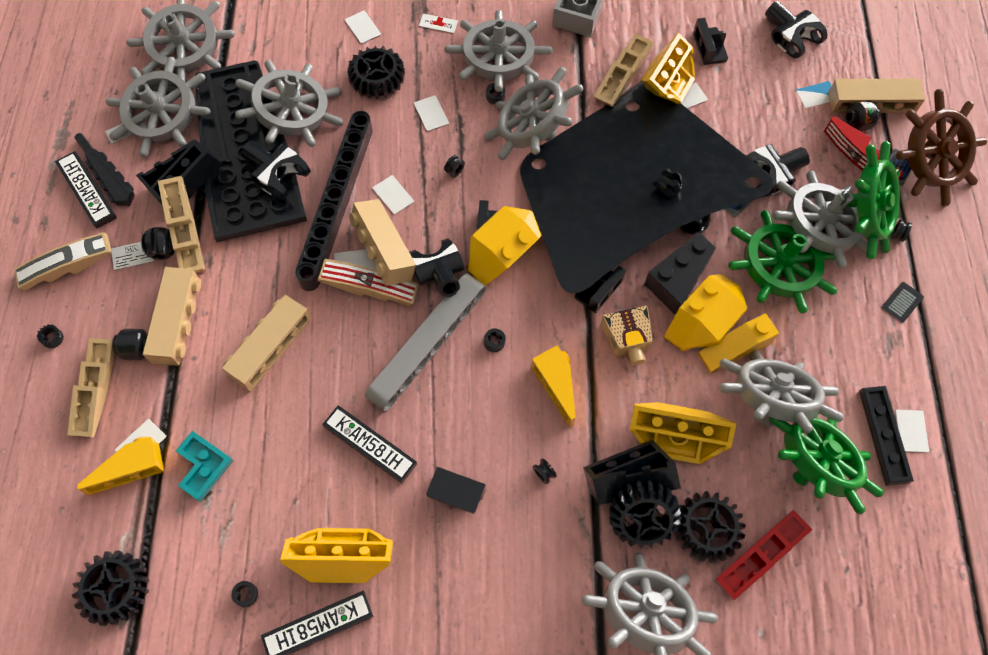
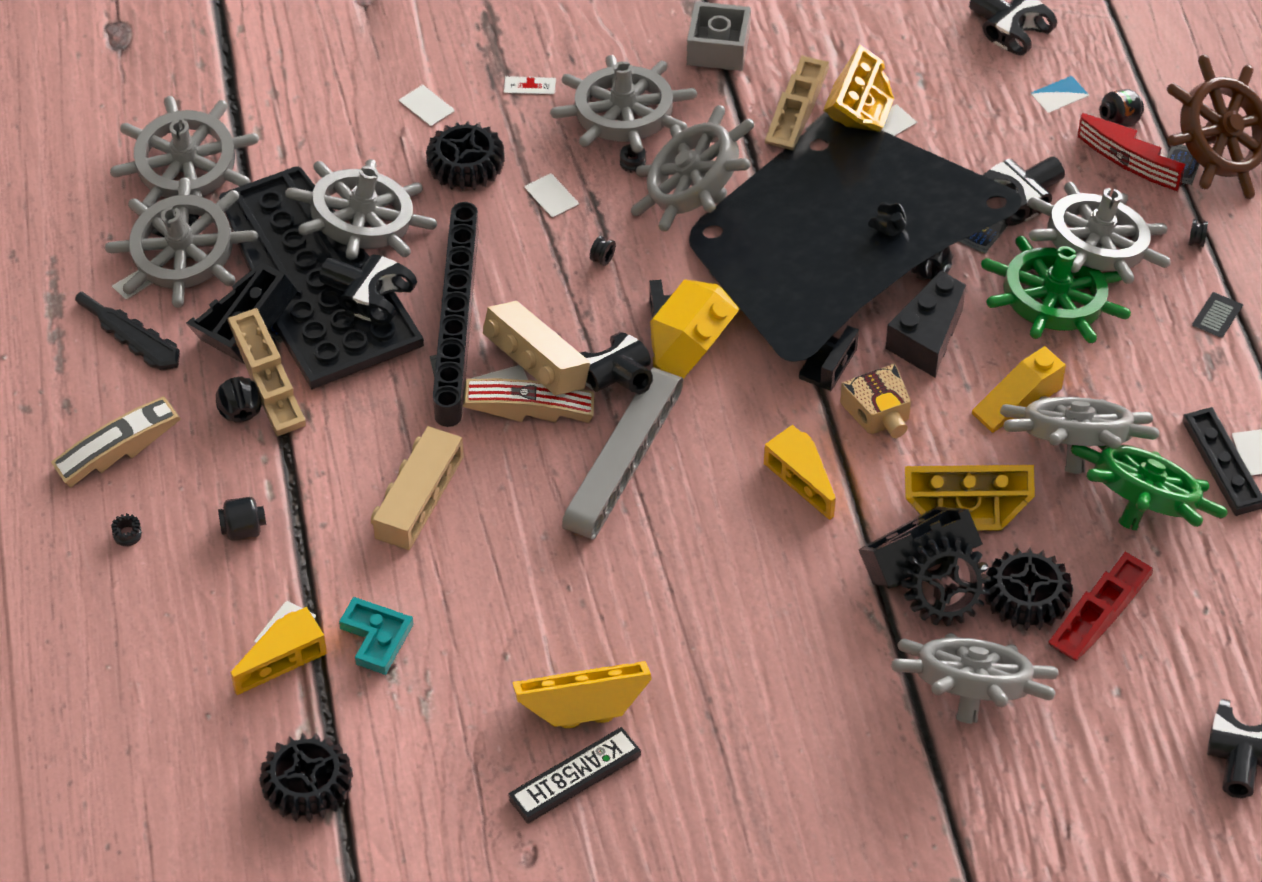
camera: 10 degrees left, 15 degrees down
(85, 189) = (112, 357): tile -> none
(92, 388) = (204, 574): tan slope -> none
(129, 256) = (200, 424): white sticker -> none
(172, 316) = (283, 479): tan brick -> none
(252, 591) = (474, 767): black bush -> none
(370, 444) = (582, 577): tile -> none
(393, 194) = (529, 296): white sticker -> none
(456, 490) = (708, 599): black panel -> none
(489, 345) = (713, 433): black bush -> none
(544, 472) = (811, 567): black bush -> none
(707, 314) = (971, 364): yellow wedge -> none
(710, 42) = (903, 52): black panel -> none
(877, 199) = (1154, 195): green piece -> none
(886, 93) = (1144, 76): tan brick -> none

